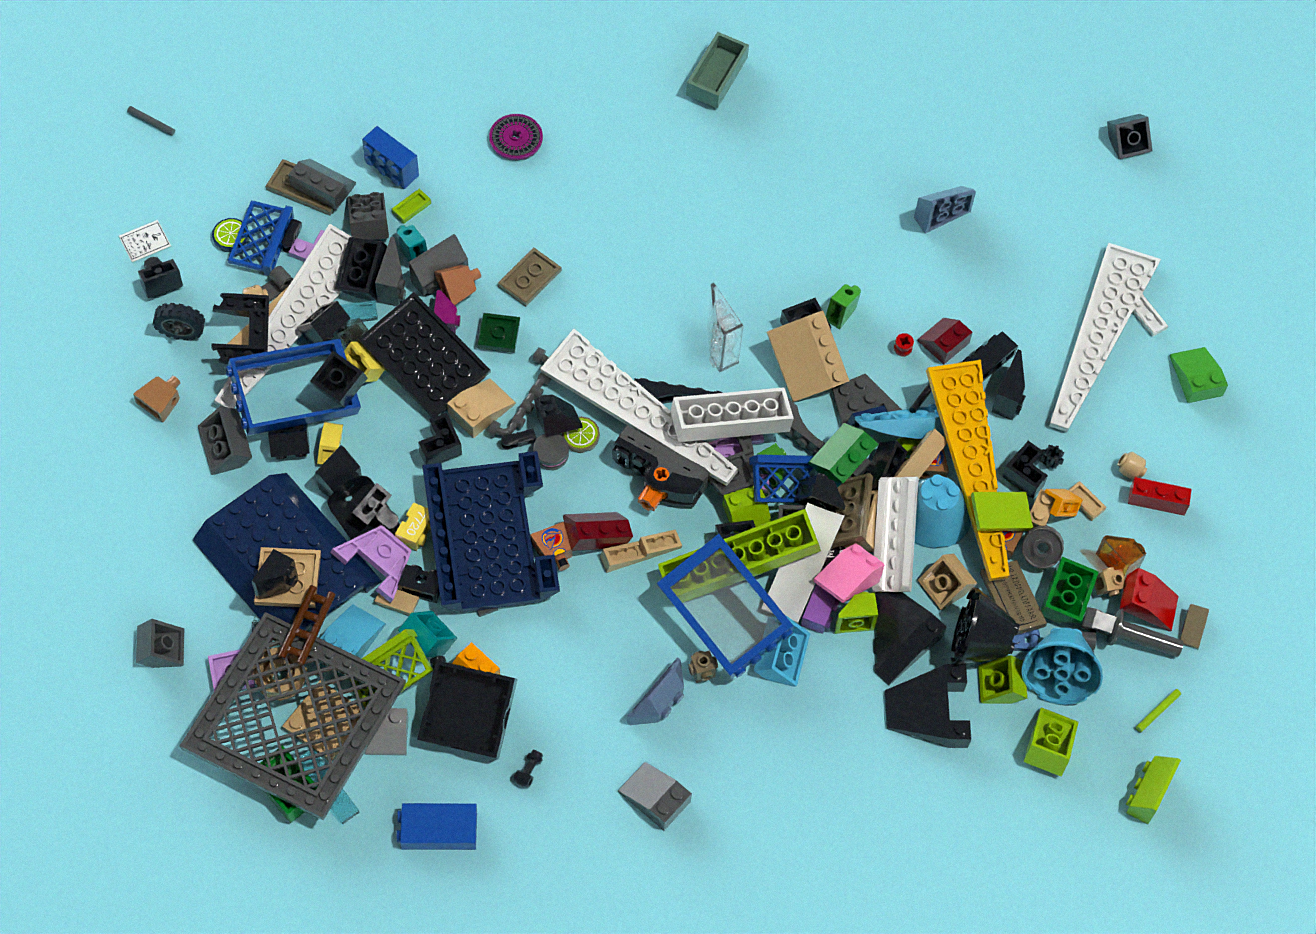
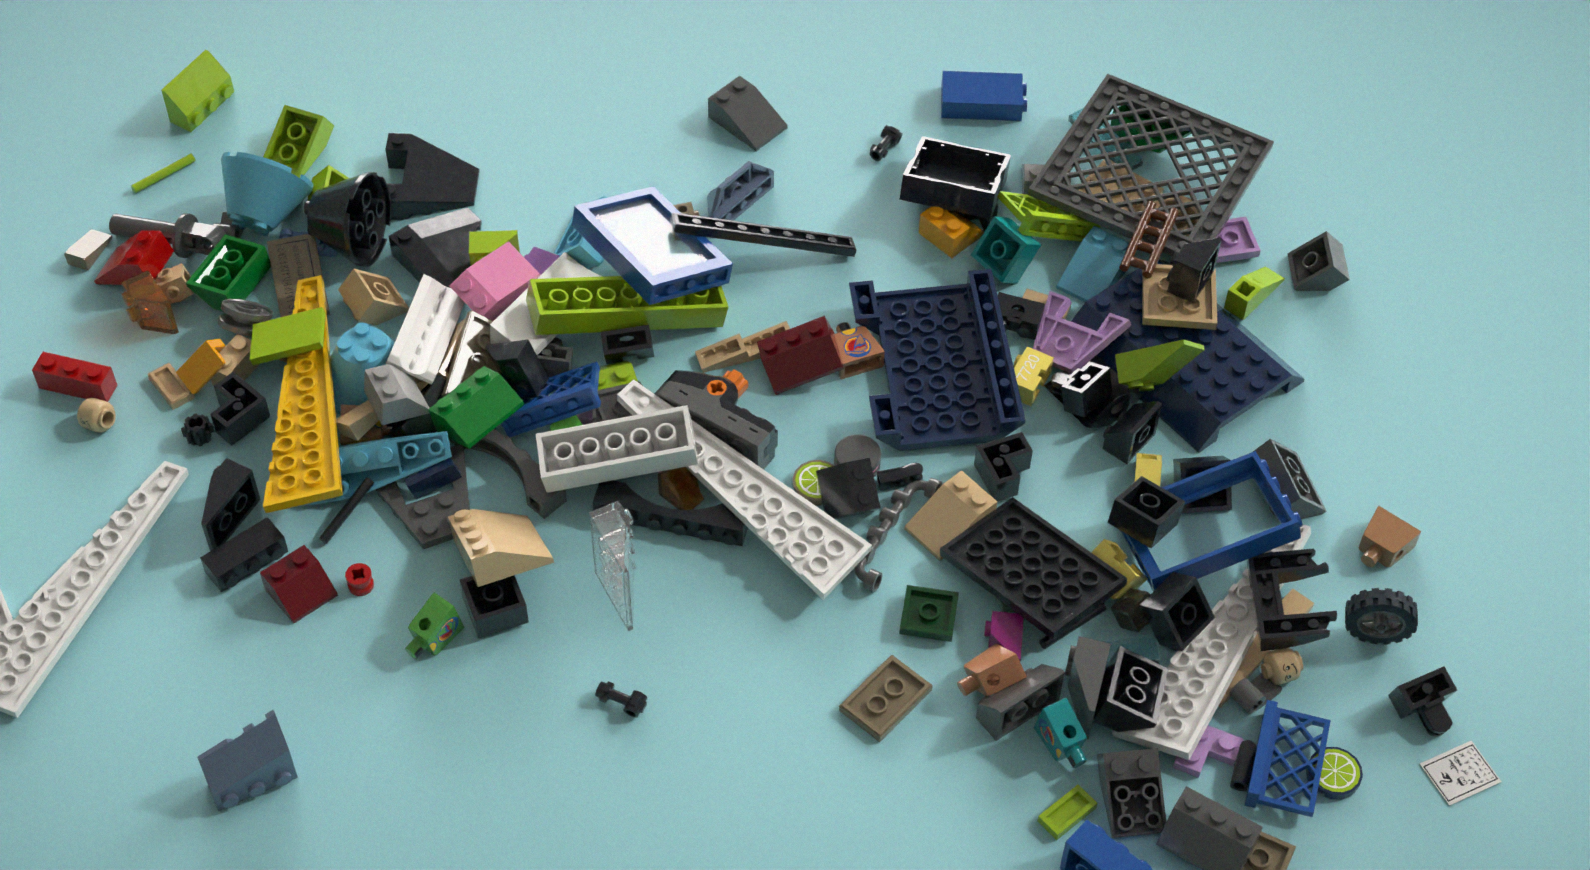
camera: 175 degrees left, 10 degrees down
(220, 614) = (1251, 291): none -> lime slope
(314, 506) = (1154, 364): none -> lime slope
(633, 635) = (762, 234): none -> black tile
(700, 264) = (633, 704): none -> black bar
(905, 454) = (393, 394): none -> light grey slope

